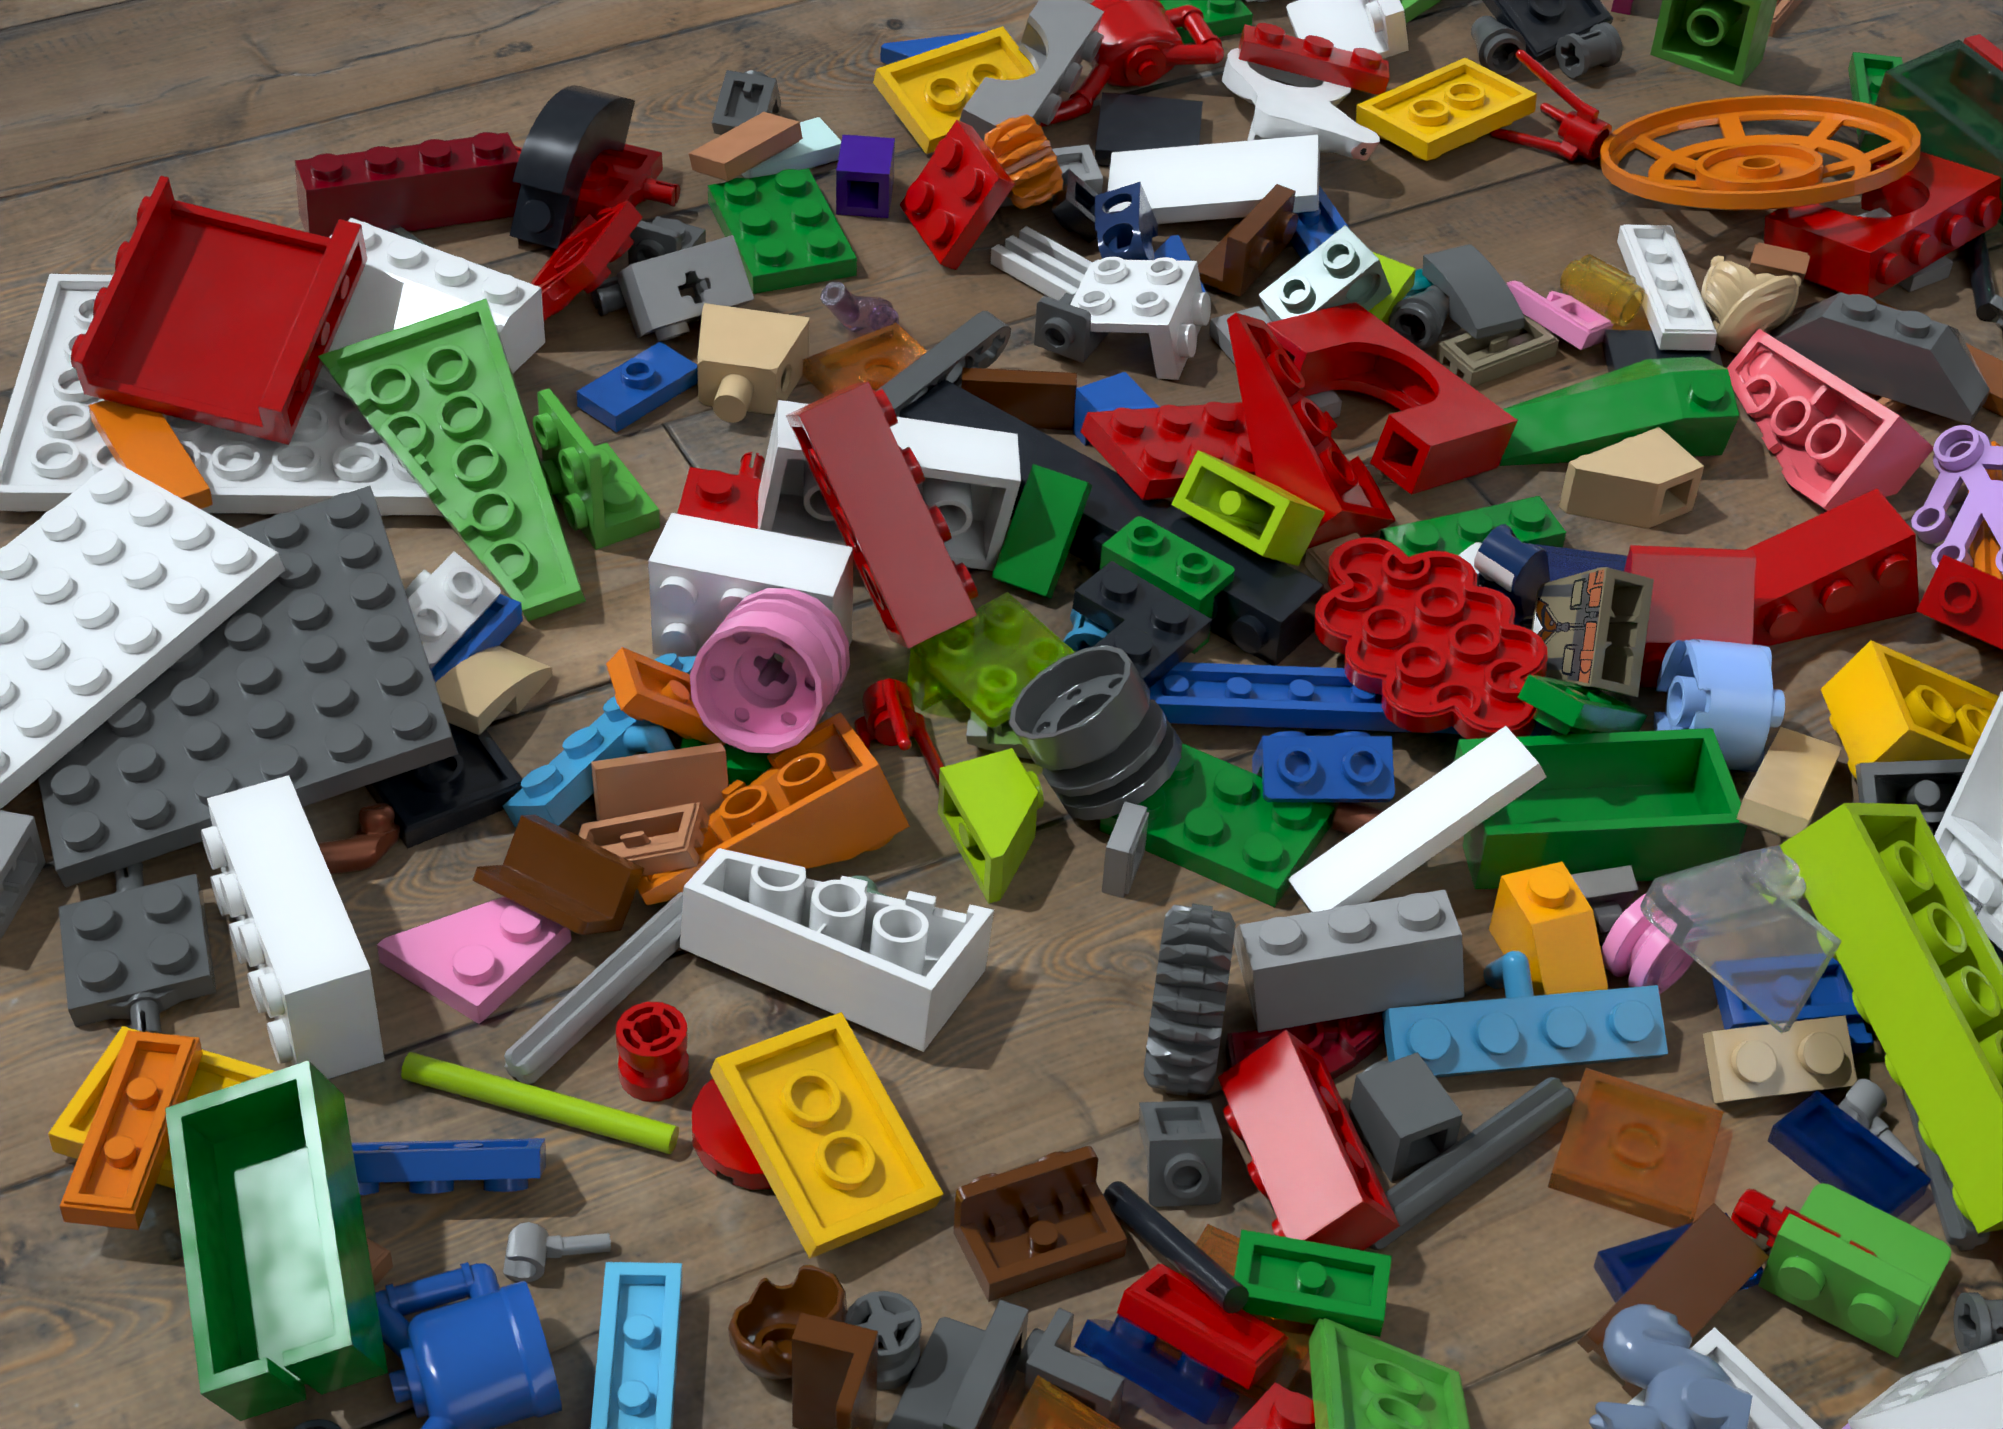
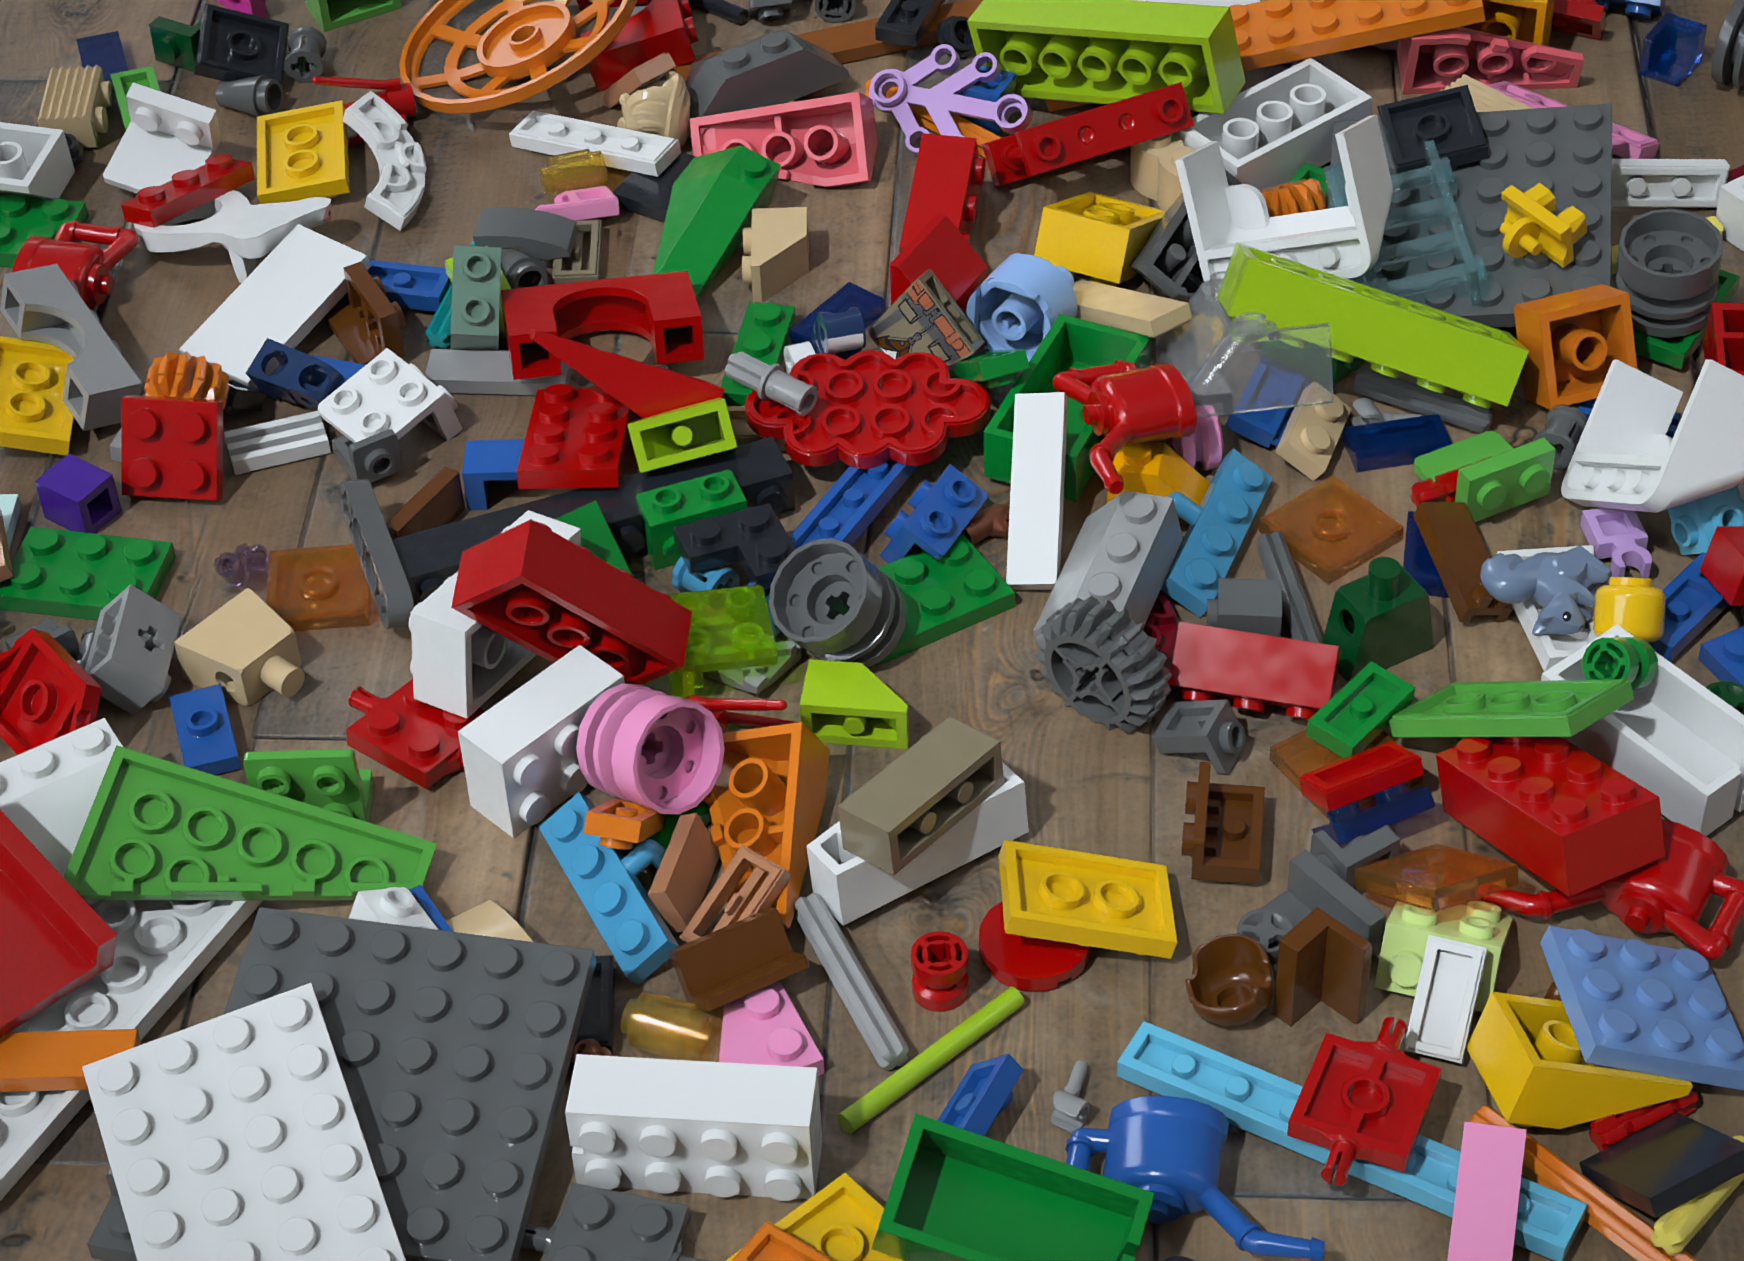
camera: 55 degrees left, 0 degrees up
(445, 861) = (666, 1026): none -> clear yellow brick
(823, 899) = (921, 795): none -> dark tan brick
(1125, 850) = (928, 650): light grey tile -> none
(1145, 123) = (160, 318): black tile -> none
(1176, 1247) = (1295, 762): black bar -> none
(1378, 541) = (771, 382): none -> light grey axle
(1485, 1246) = (1379, 619): none -> dark green torso
(1500, 176) = (398, 158): none -> white tile
(1586, 836) = (1129, 409): none -> red piece

